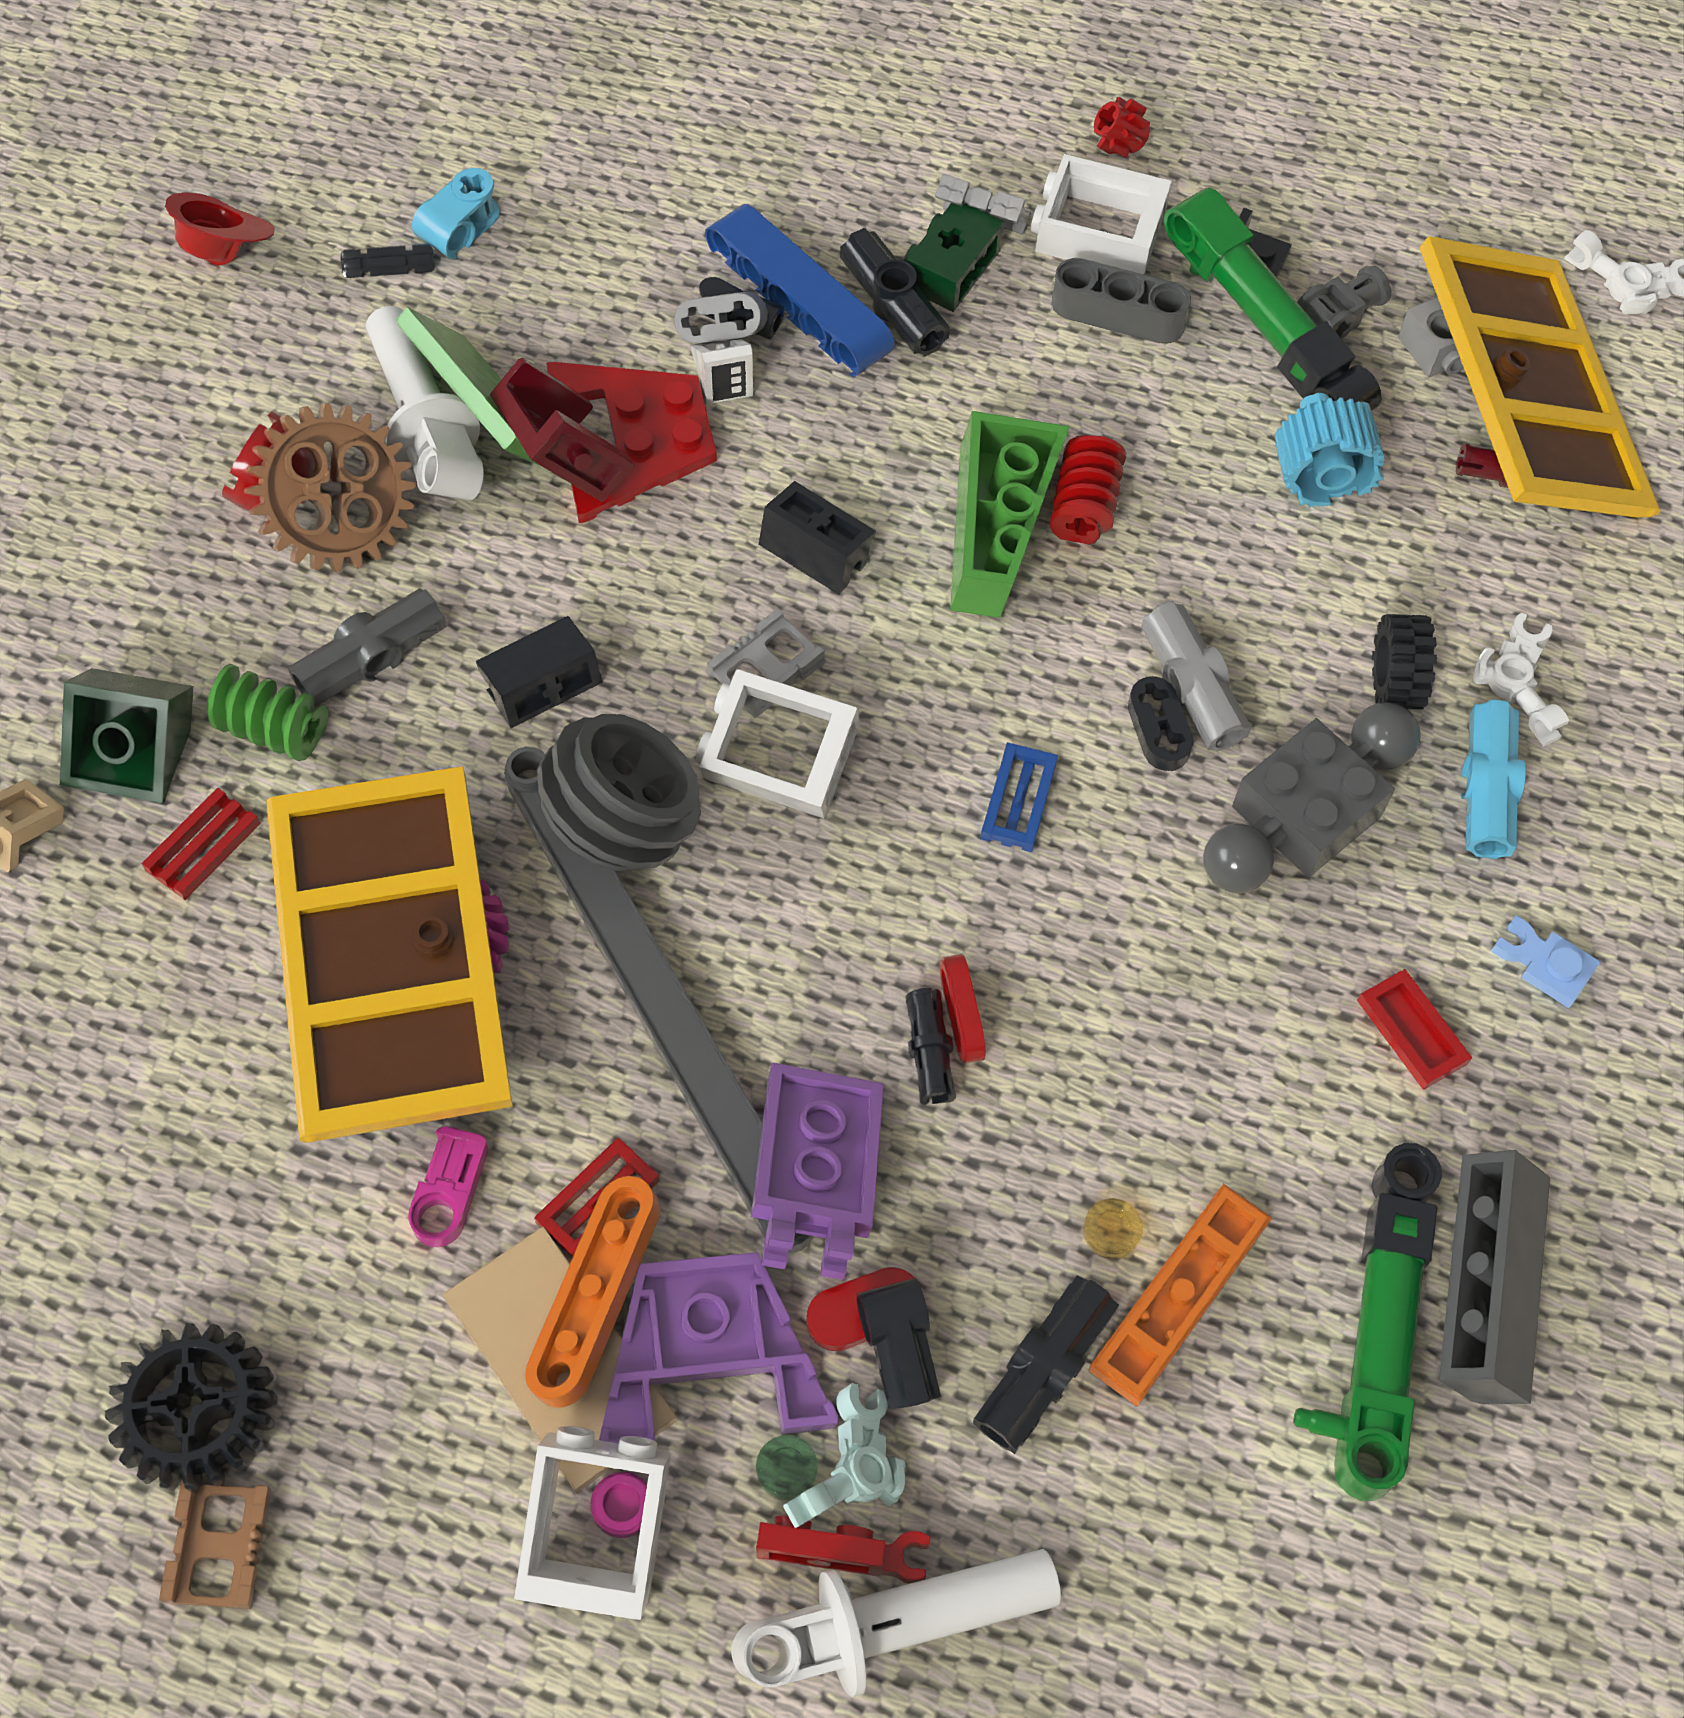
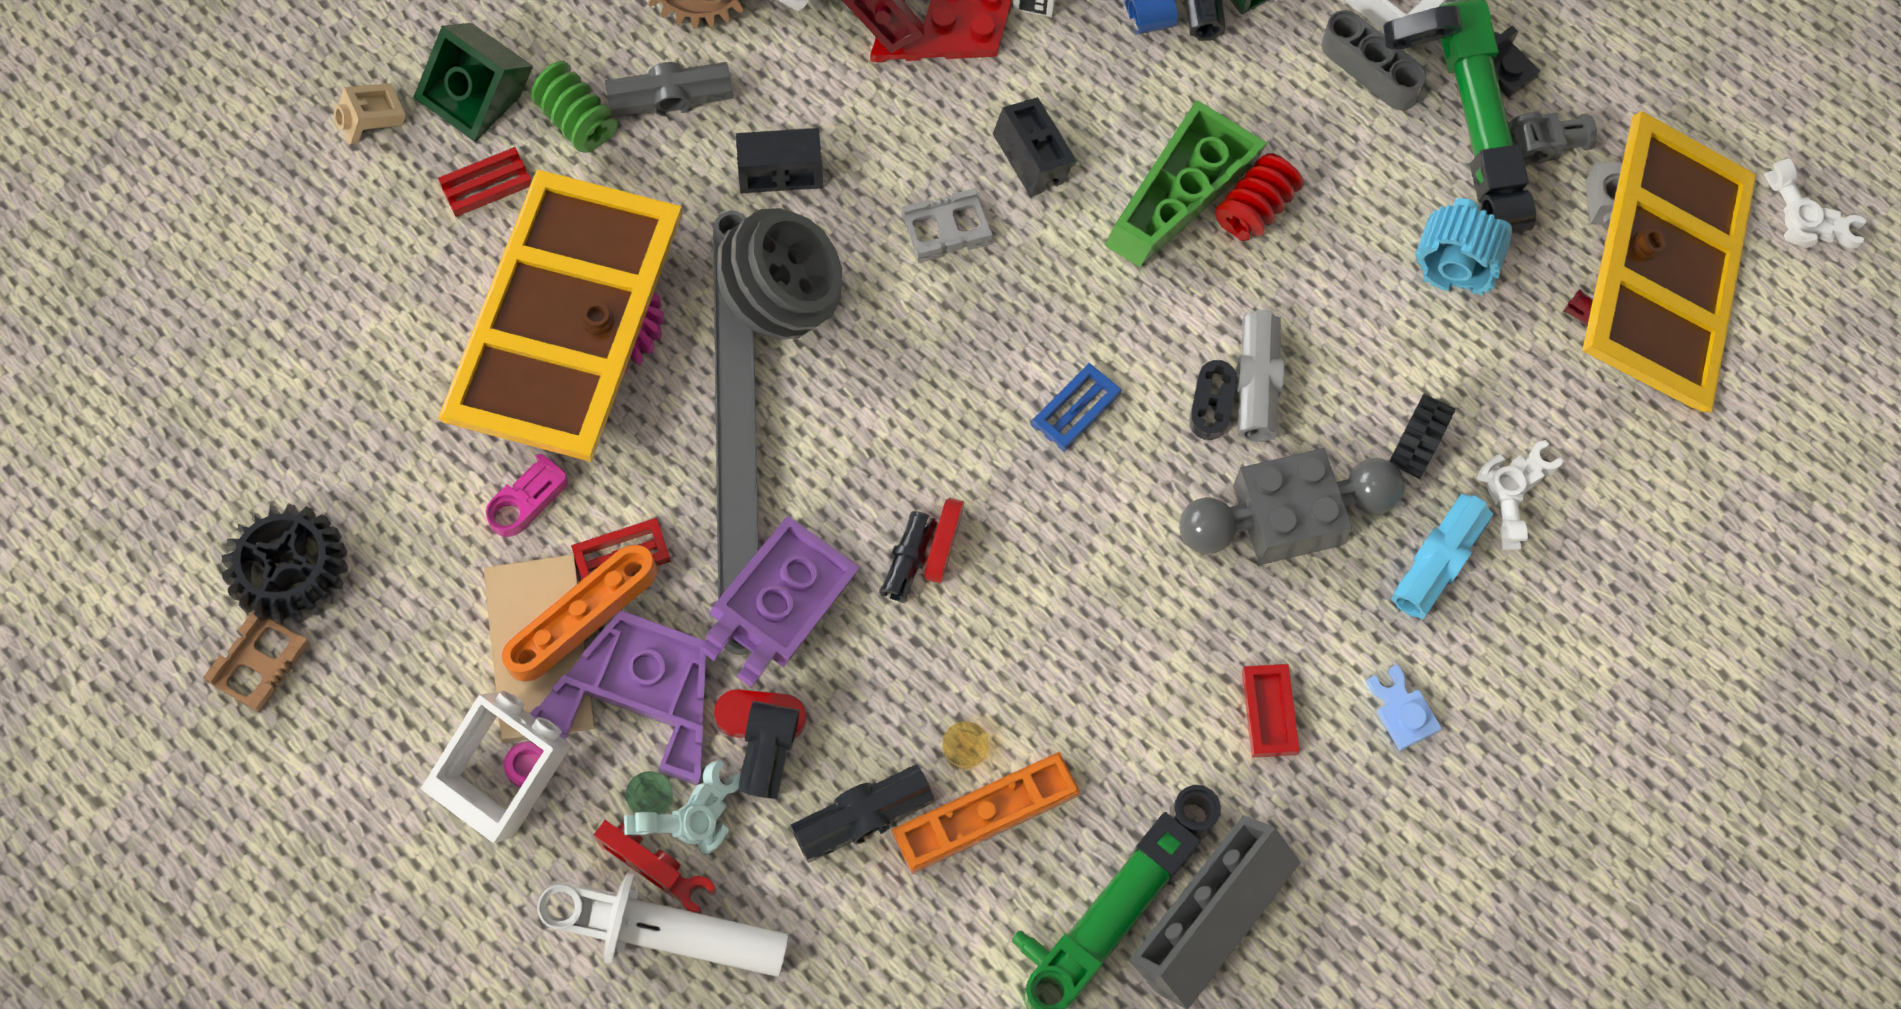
camera: 25 degrees right, 5 degrees up
(829, 761) = (947, 318): white window -> none
(1165, 240) = (1422, 27): none -> black beam

